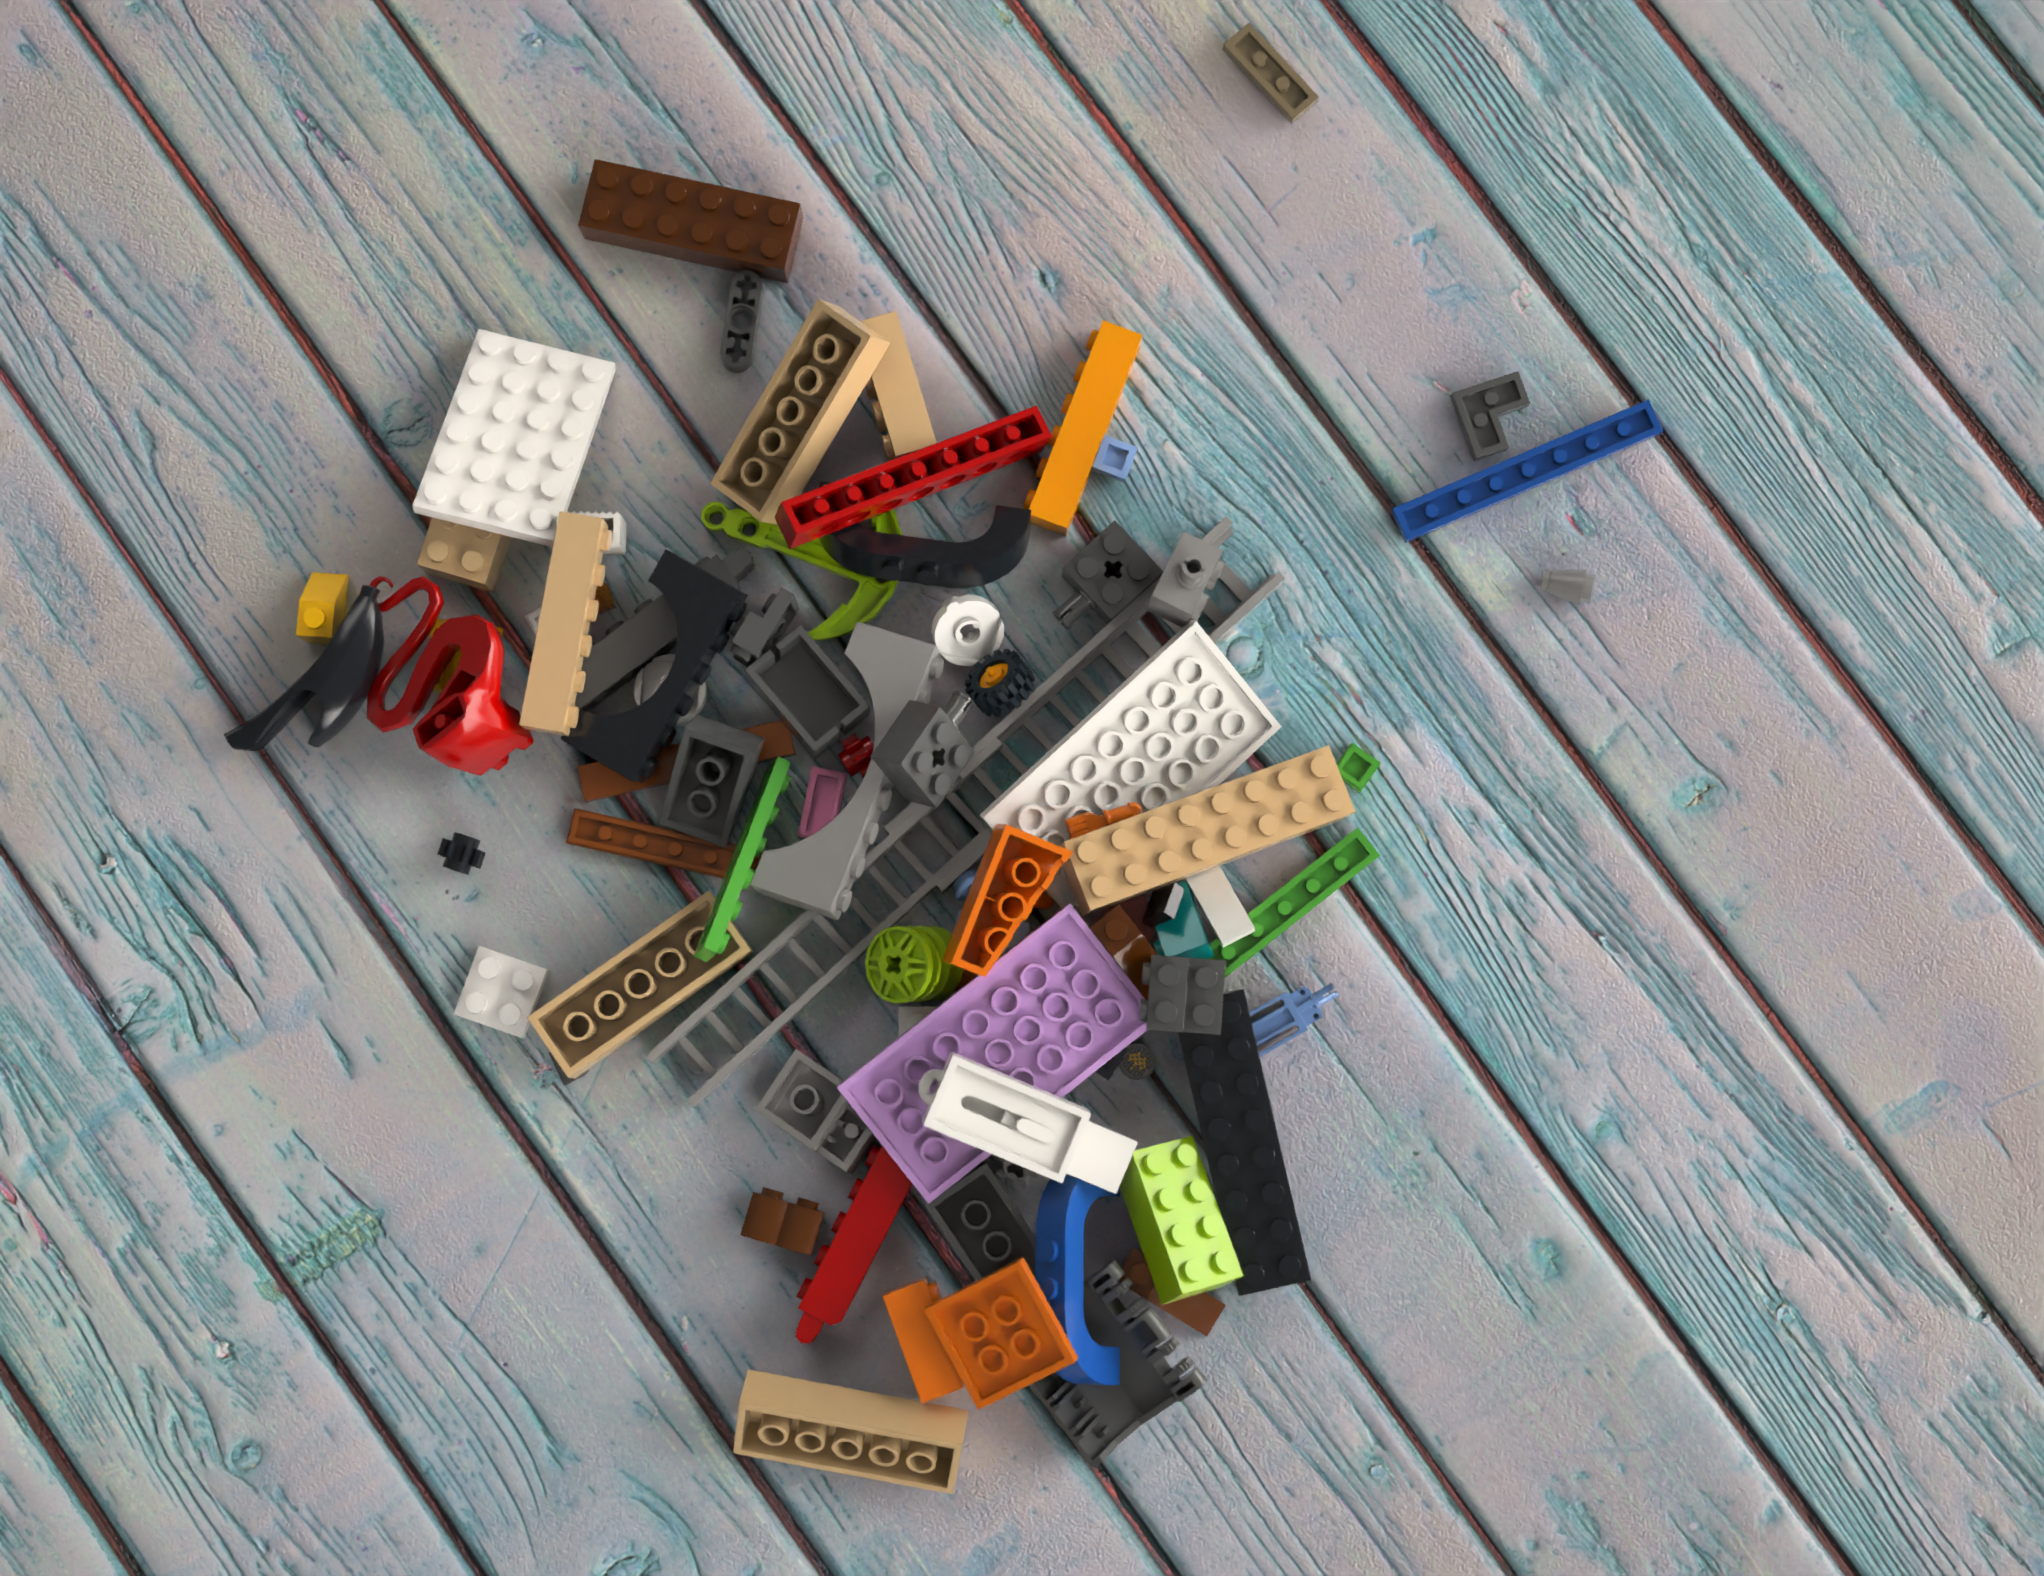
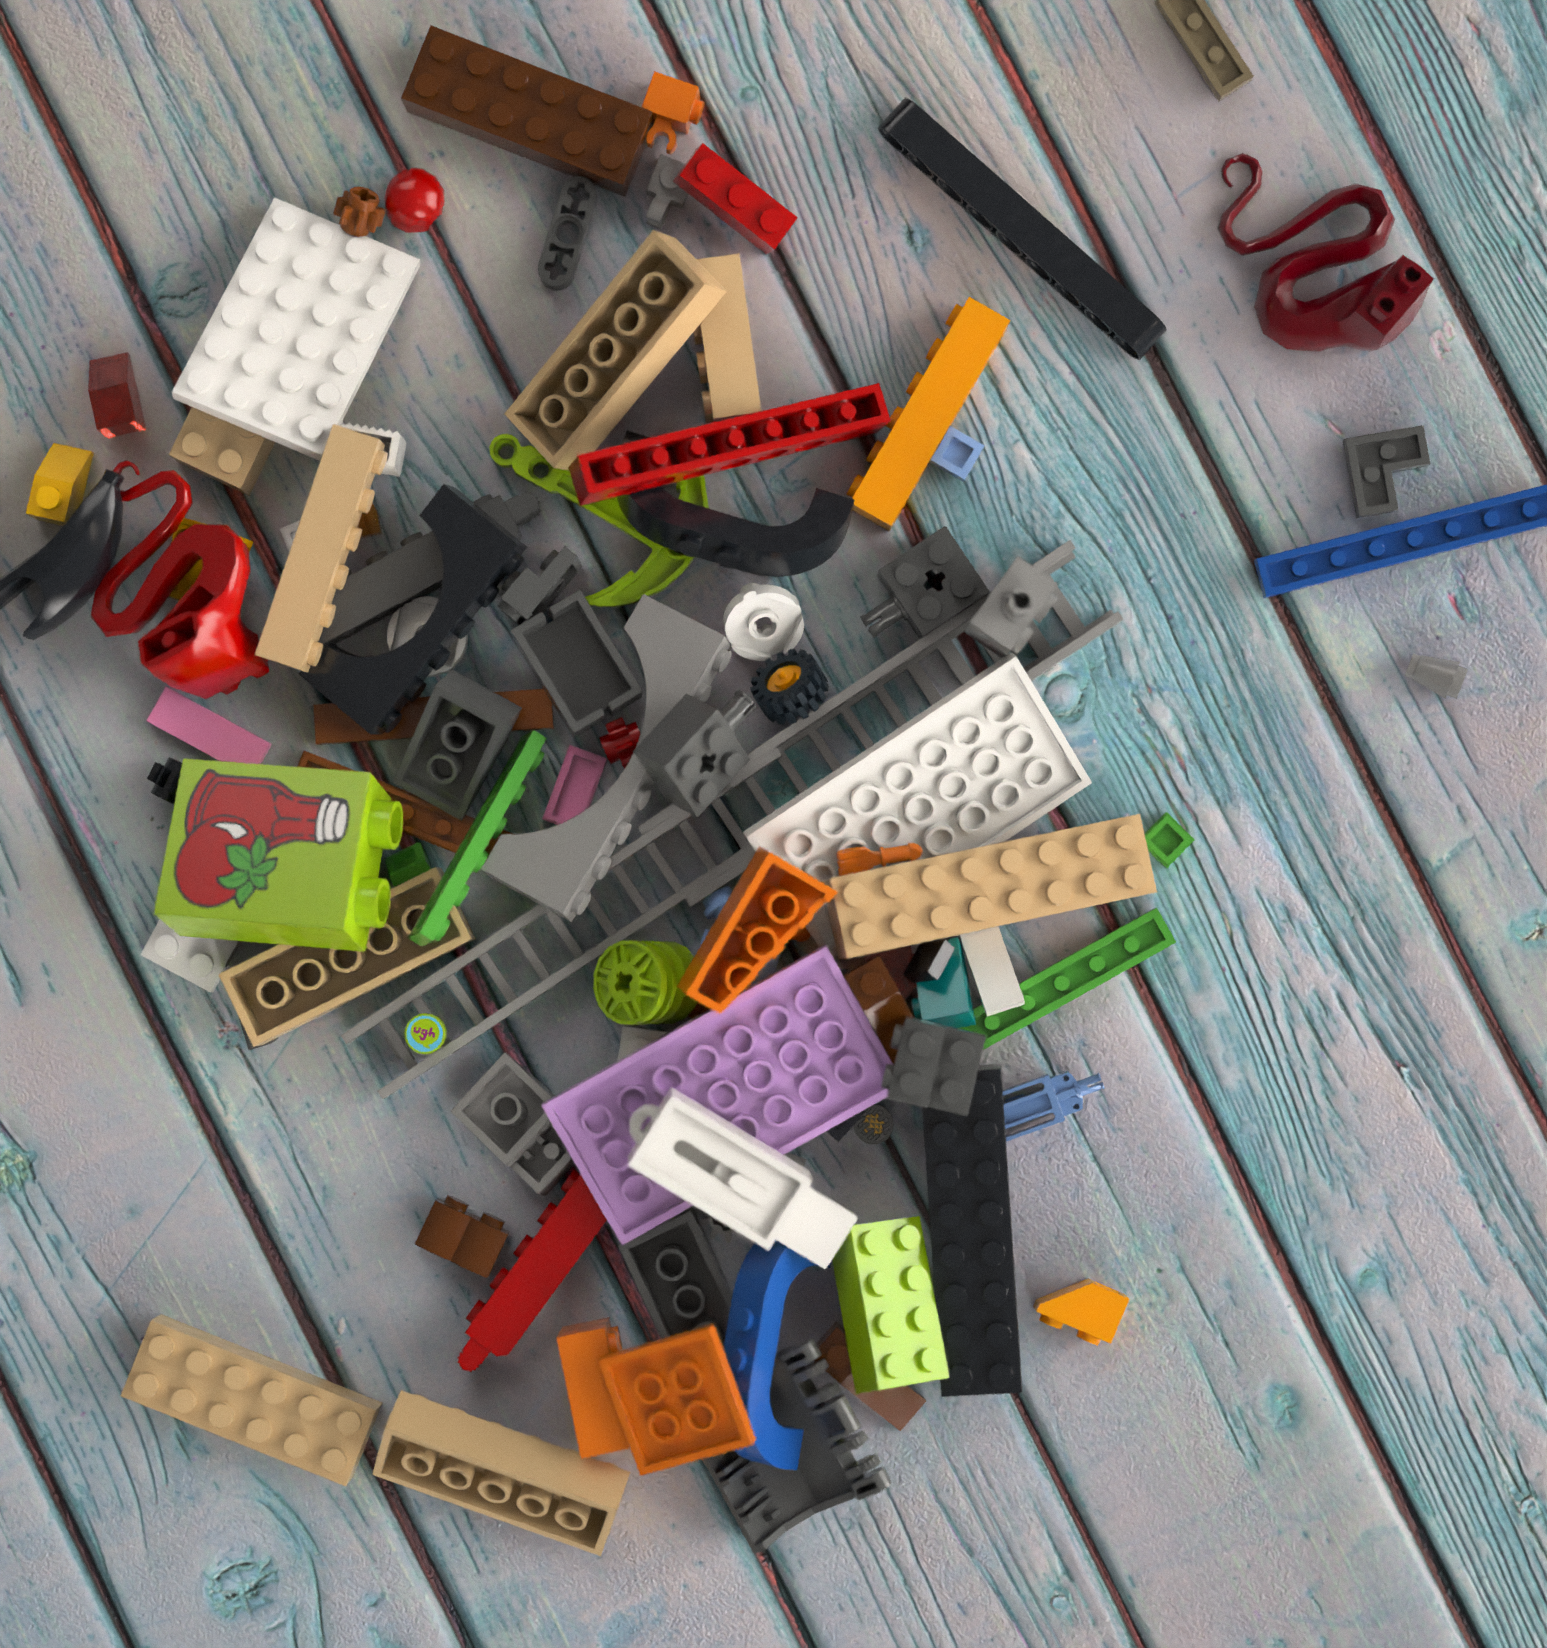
camera: 15 degrees right, 5 degrees up
(361, 523) = (115, 396): none -> clear red slope
(487, 806) = (206, 730): none -> bright pink tile
(555, 329) = (359, 211): none -> dark orange gear
(565, 901) = (277, 855): none -> lime brick
(602, 313) = (413, 200): none -> red hair
(612, 1402) = (251, 1399): none -> tan brick
(682, 893) = (407, 864): none -> bright green tile
(721, 1041) = (425, 1033): none -> tile
(819, 199) = (673, 106): none -> orange brick
(824, 268) = (664, 191): none -> light grey plate
(884, 268) = (735, 199): none -> red brick
(1140, 257) = (1022, 229): none -> black beam
(1356, 1195) = (1086, 1307): none -> light orange slope
(1442, 286) = (1354, 316): none -> dark red hips

